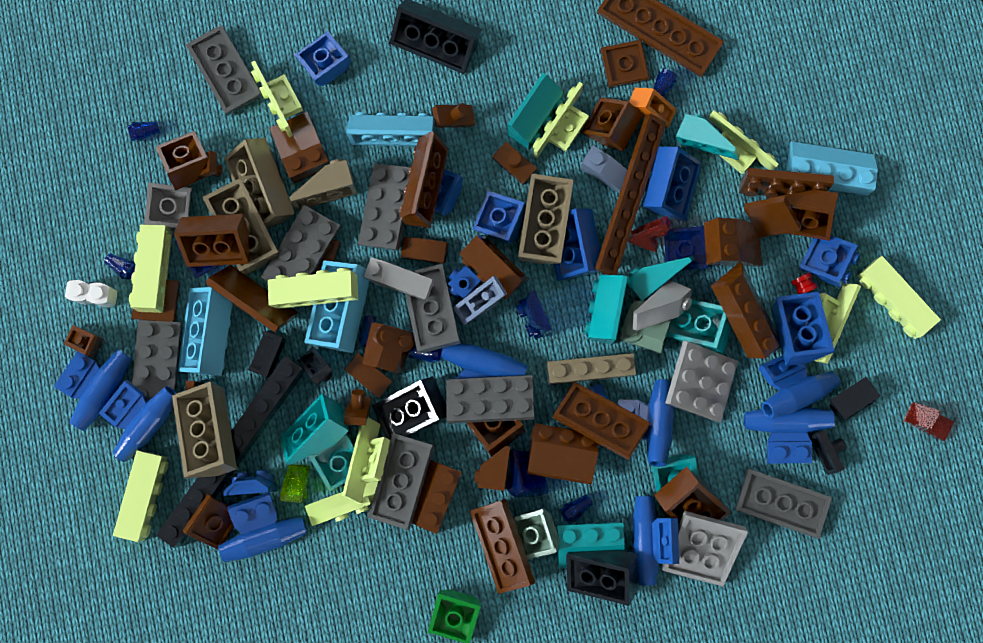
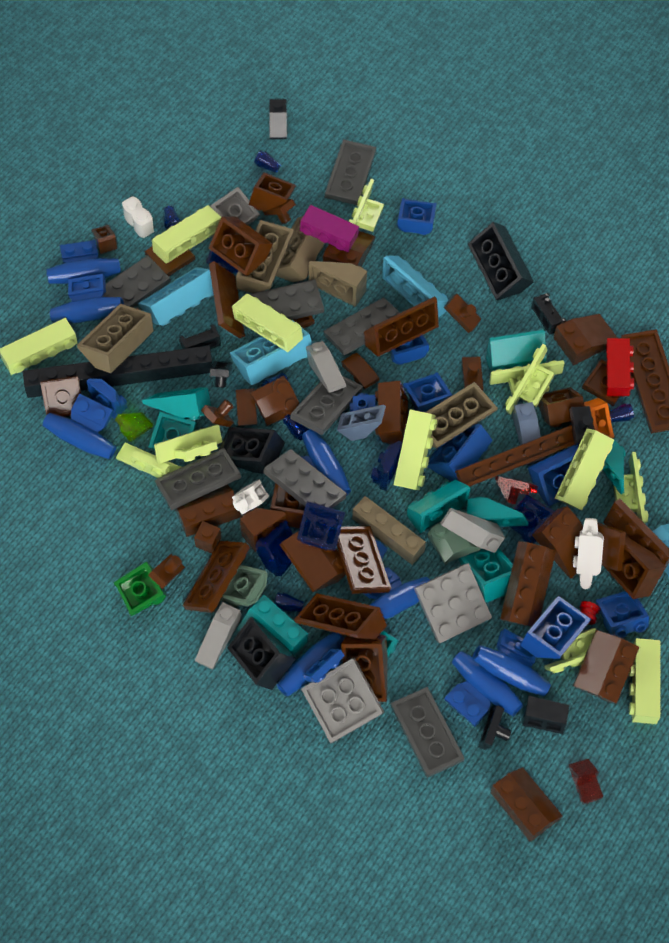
camera: 40 degrees right, 20 degrees down
(108, 78) = (278, 118): none -> slope
(272, 151) = (329, 228): none -> magenta brick
(459, 519) = (207, 537): none -> reddish brown brick
(460, 582) = (167, 570): none -> reddish brown tile
(463, 458) = (250, 497): none -> white hinge
(520, 47) = (546, 313): none -> black hinge
(546, 282) = (414, 450): none -> yellowish green brick
(549, 430) = (320, 526): none -> clear blue slope
(553, 590) = (218, 635): none -> light grey slope
(570, 39) = (583, 337): none -> reddish brown slope
(579, 127) = (533, 383): none -> yellowish green bracket
(627, 43) = (619, 366): none -> red brick
(641, 490) = (342, 617): none -> reddish brown slope
(652, 128) = (580, 420): none -> black tile
(692, 166) = (584, 469): none -> yellowish green brick
(766, 237) = (589, 552): none -> white hinge
(866, 319) = (606, 666): none -> reddish brown slope
(907, 484) = (525, 803): none -> reddish brown slope

